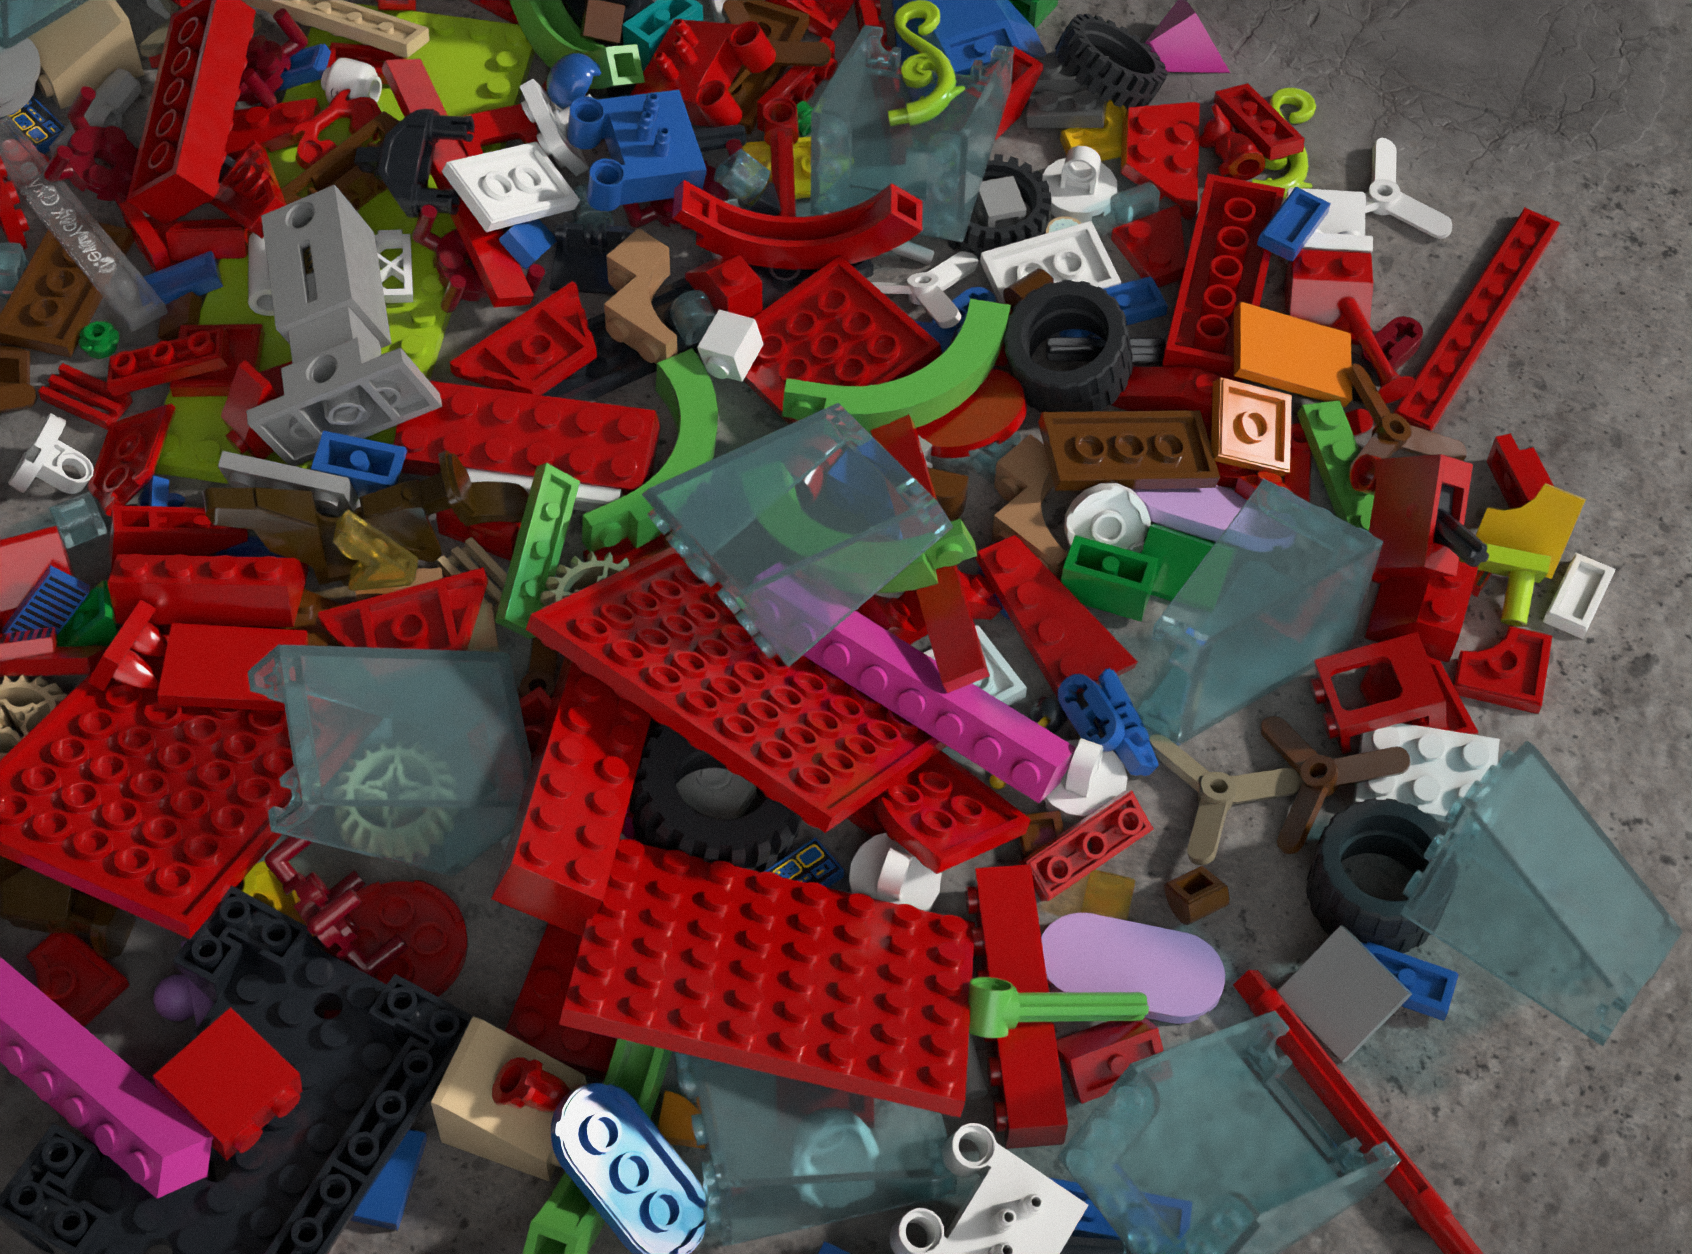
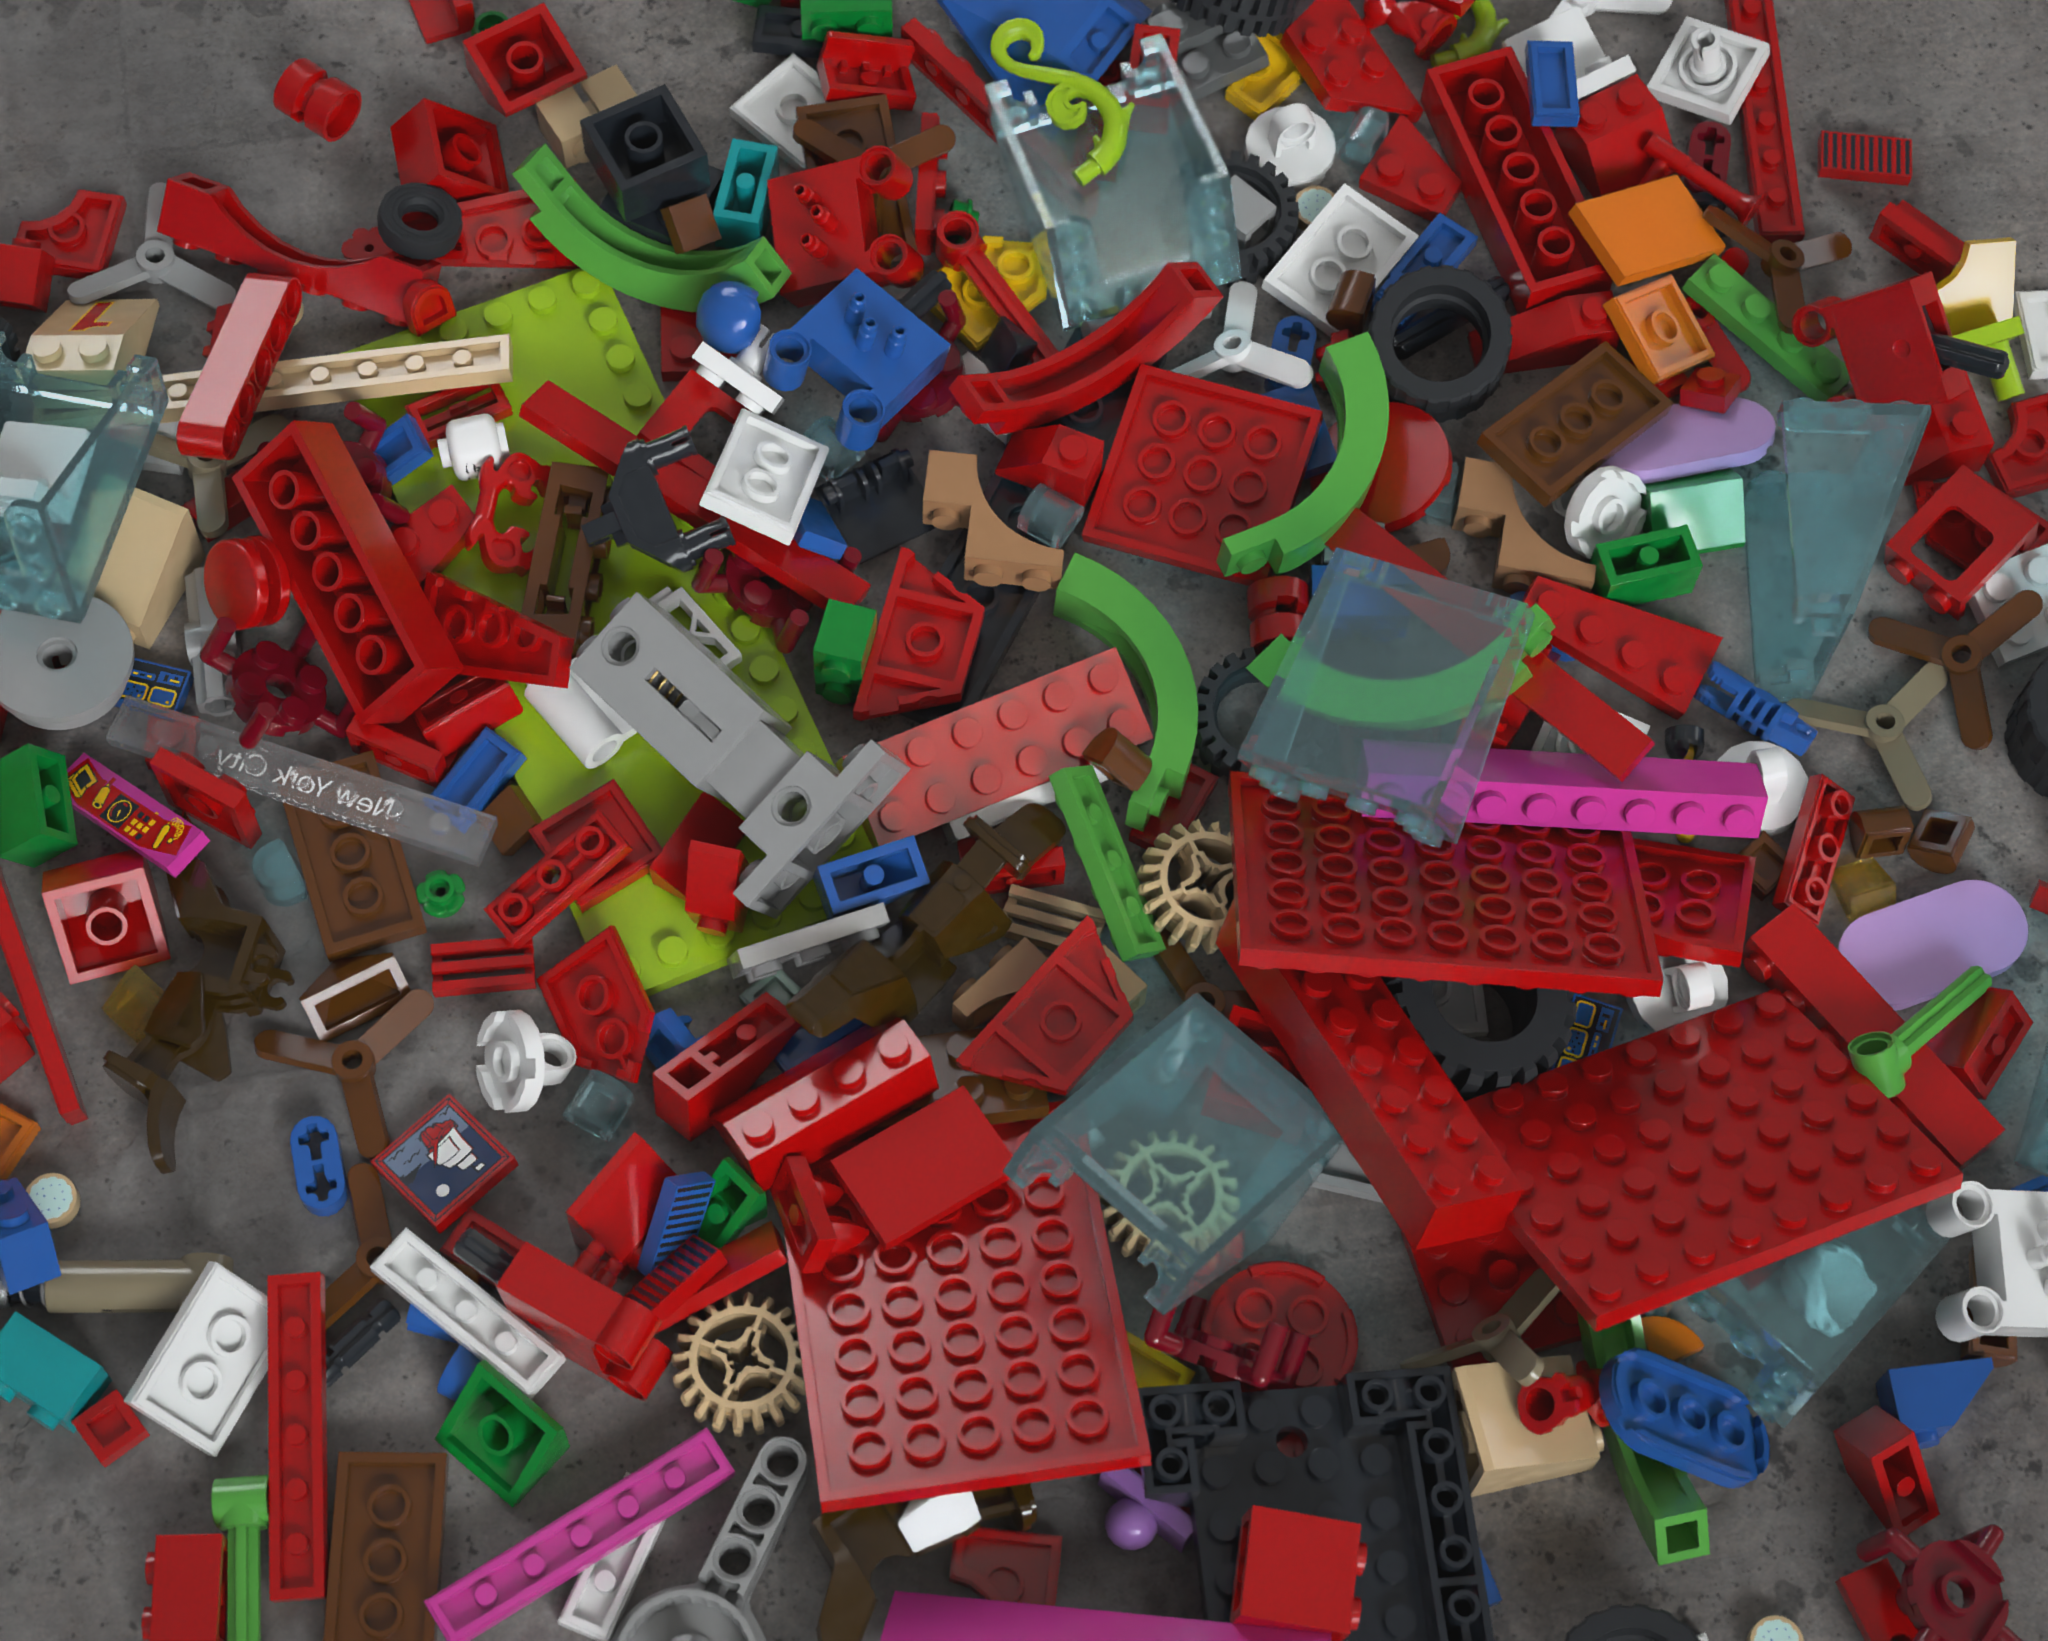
camera: 35 degrees left, 10 degrees up
(131, 82) = (247, 581): none -> red head
(380, 559) = (965, 969): clear yellow slope -> none
(474, 315) = (843, 650): none -> green brick
(529, 1026) = (1500, 1334): none -> dark tan piece
(597, 484) = (1118, 759): none -> reddish brown brick
(730, 345) = (1113, 528): white brick -> none
(742, 176) = (975, 327): clear light blue brick -> none
(1098, 707) = (1726, 728): blue beam -> none
(1151, 862) = (1880, 831): none -> reddish brown brick
(1438, 284) = (1708, 70): none -> white plate
(1524, 405) = (1864, 158): none -> red tile

